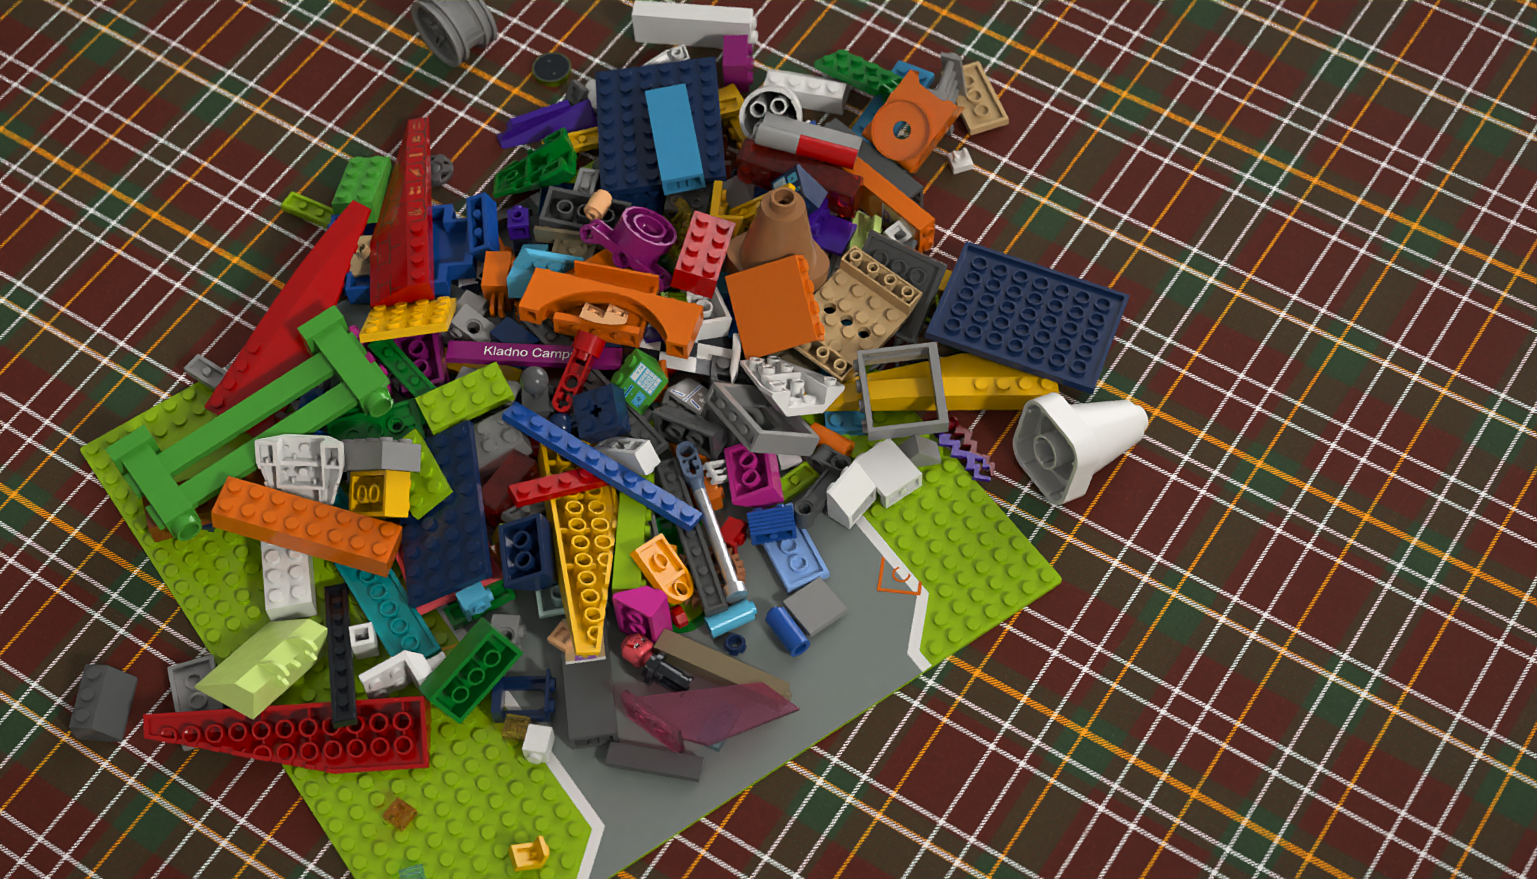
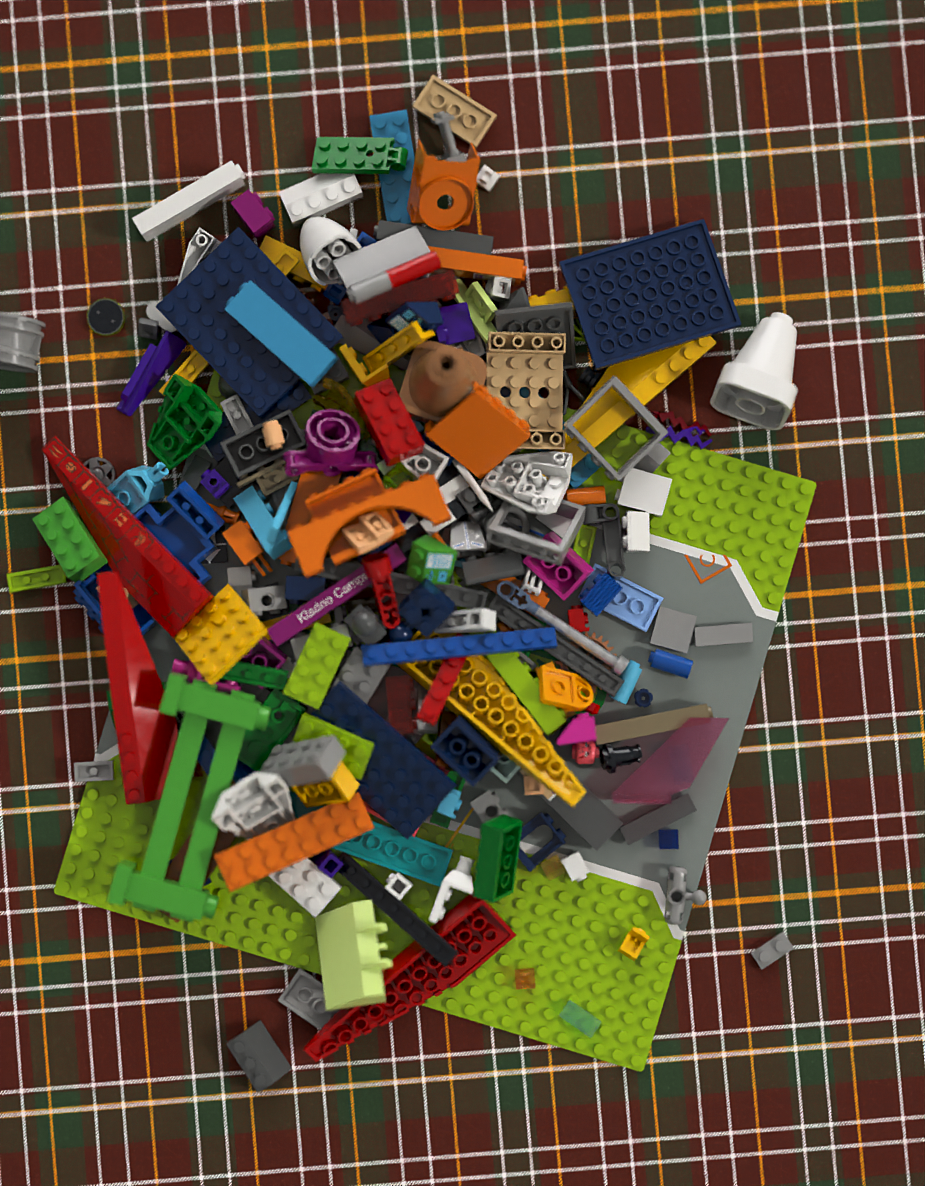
camera: 40 degrees left, 30 degrees up
(322, 575) = (327, 862): none -> dark purple brick
(456, 187) = (140, 486): none -> medium azure plate
(618, 831) = (676, 907): none -> light grey piece
(648, 787) = (668, 839): none -> clear blue tile
(859, 643) = (723, 634): none -> light grey tile

